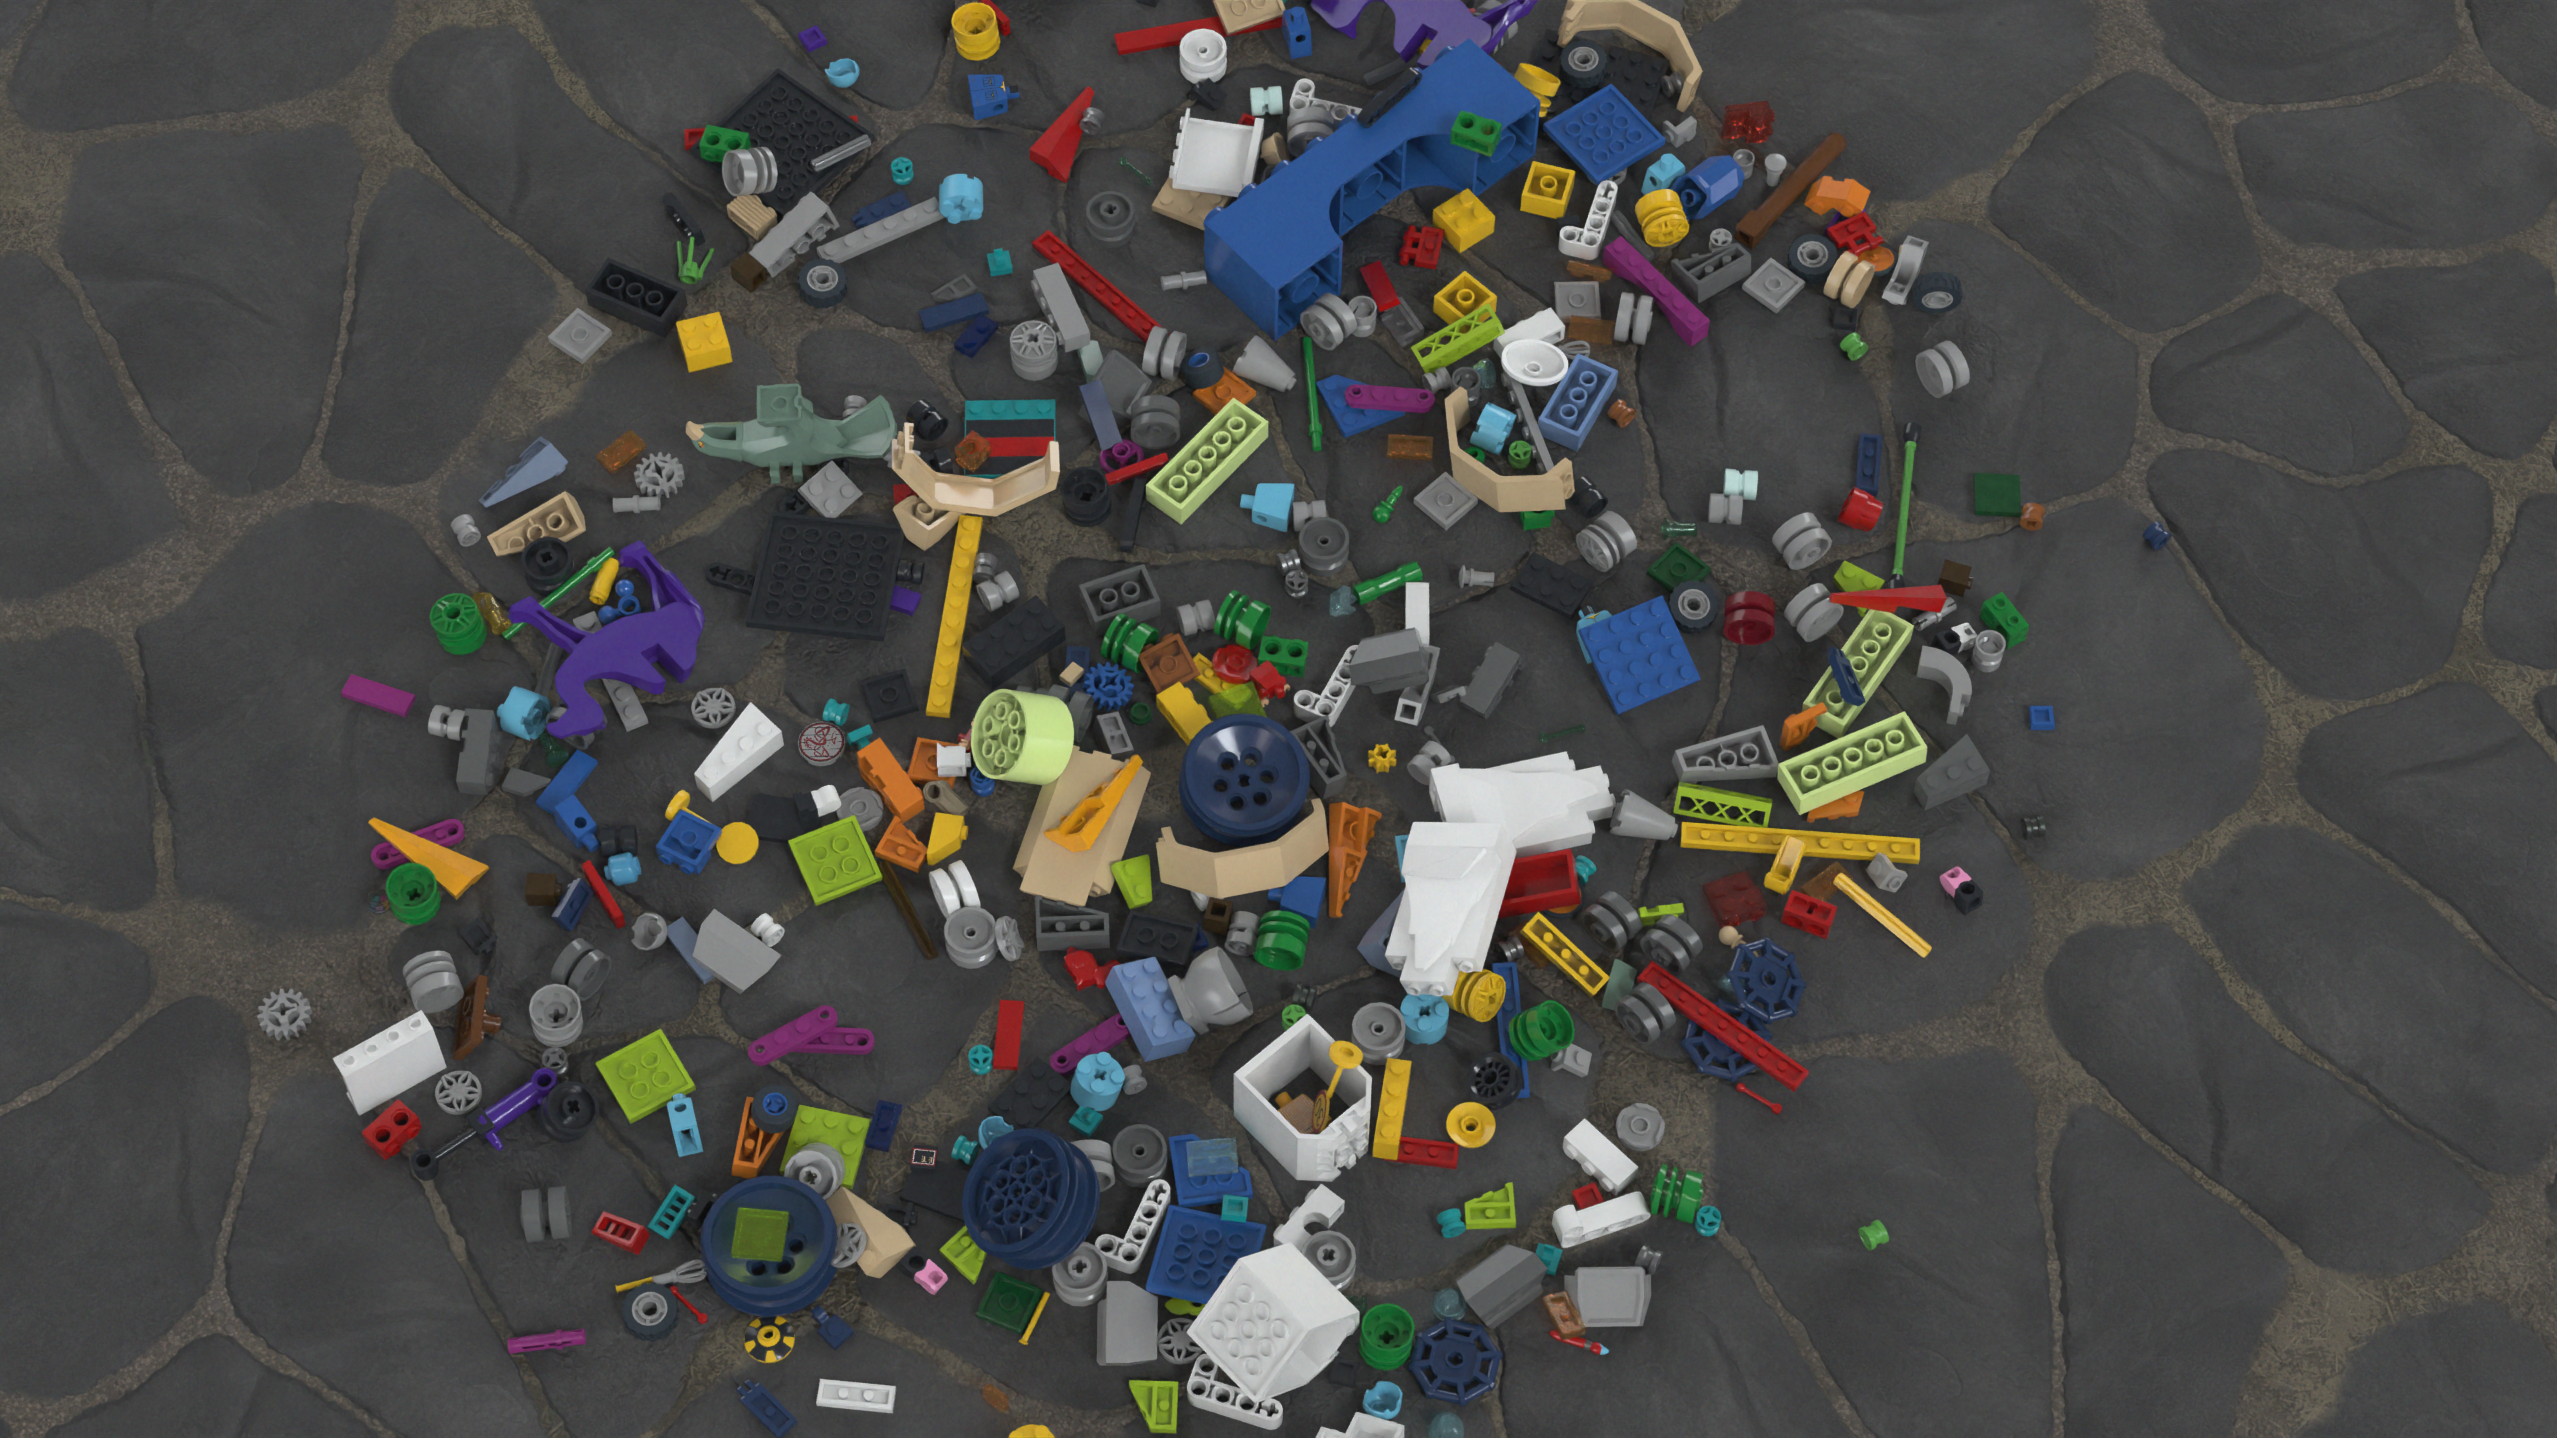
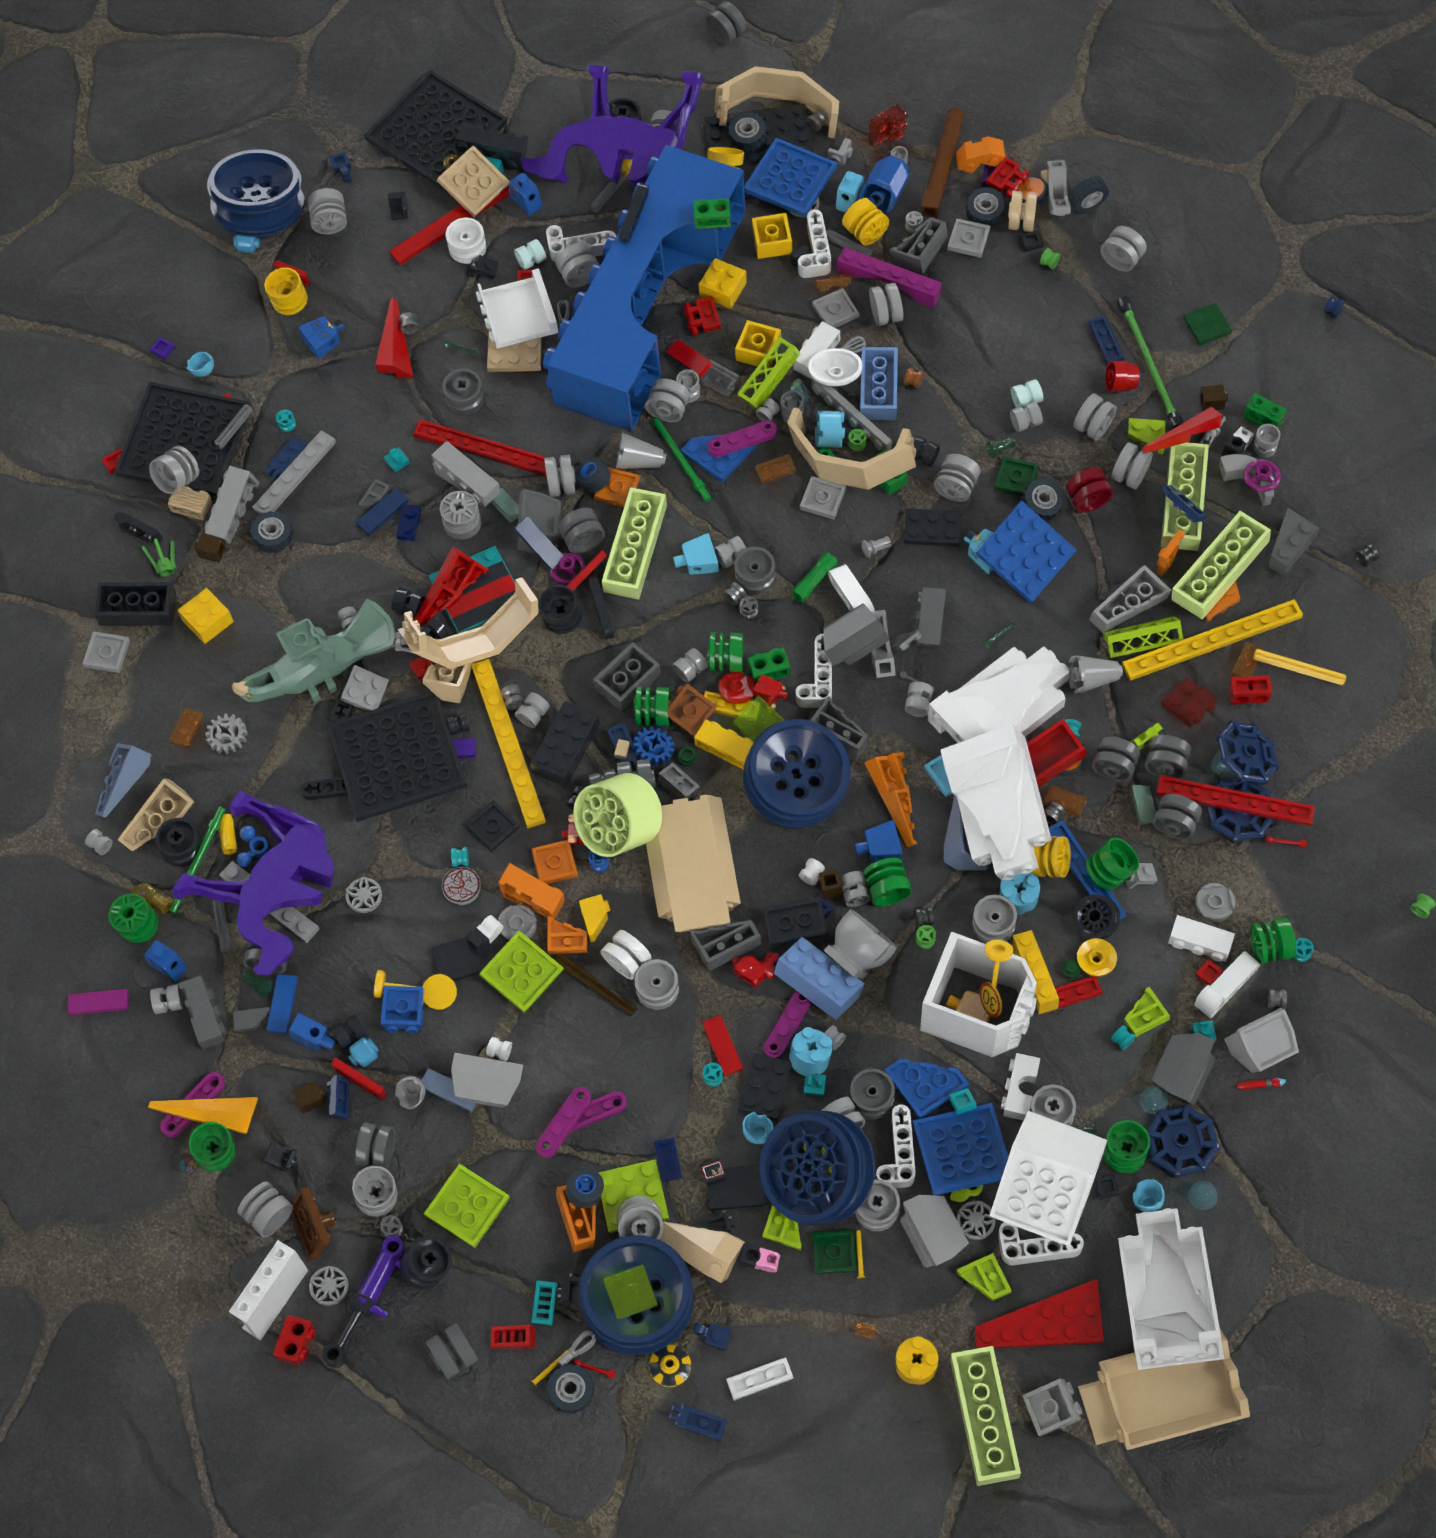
camera: 20 degrees left, 5 degrees up
(274, 1013) = (153, 1293): light grey gear -> none
(464, 676) = (162, 958): none -> blue torso
(524, 713) = (222, 965): medium azure brick -> none
(558, 1340) = (502, 1450): magenta pin -> none
(636, 504) = (220, 763): light grey pin -> none
(683, 1118) = (518, 1230): medium azure torso -> none
(718, 141) = (141, 454): green brick -> none
(738, 753) = (404, 918): white wedge -> none
(847, 1244) = (695, 1266): light grey wheel -> none
(860, 737) = (489, 868): teal tile -> none
(948, 800) = (582, 888): dark tan piece -> none
(952, 761) = (569, 855): white window -> none
(961, 198) = (343, 422): medium azure brick -> none
(965, 1150) = (739, 1149): teal wheel -> none
(972, 443) = (456, 605): clear orange brick -> none
(990, 413) = (454, 576): none -> red wedge
(1008, 938) = (685, 972): light grey wheel -> none
(1086, 821) = (698, 855): light orange wedge -> none
(1134, 880) = (753, 885): lime wing -> none
(1183, 280) = (541, 414): light grey pin -> none
(1212, 1157) = (926, 1070): clear light blue hinge -> none
(1244, 868) = (831, 844): tan panel -> none
(1274, 150) = (556, 289): tan piece -> none
(1341, 601) = (788, 606): clear light blue tile -> none
(1382, 512) = (780, 527): green bar -> none
(1382, 758) = (882, 710): yellow gear -> none
(1435, 1125) = (1070, 968): none -> dark green plate
(1564, 954) = (1097, 799): yellow brick -> none
(1564, 1315) = (1241, 1069): clear orange plate -> none
(1591, 329) = (858, 325): clear orange plate -> none
(1729, 936) = (1201, 731): tan bar -> none
(1774, 166) = (925, 150): light grey pin -> none
(1785, 865) = (1213, 661): yellow animal -> none
(1885, 874) = (1285, 635): light grey bracket -> none
(1959, 675) = (1264, 467): none -> magenta piece
(1962, 889) = (1343, 622): leg -> none
(2032, 516) = (1241, 329): dark orange wheel -> none
(2041, 717) = (1327, 473): blue tile -> none

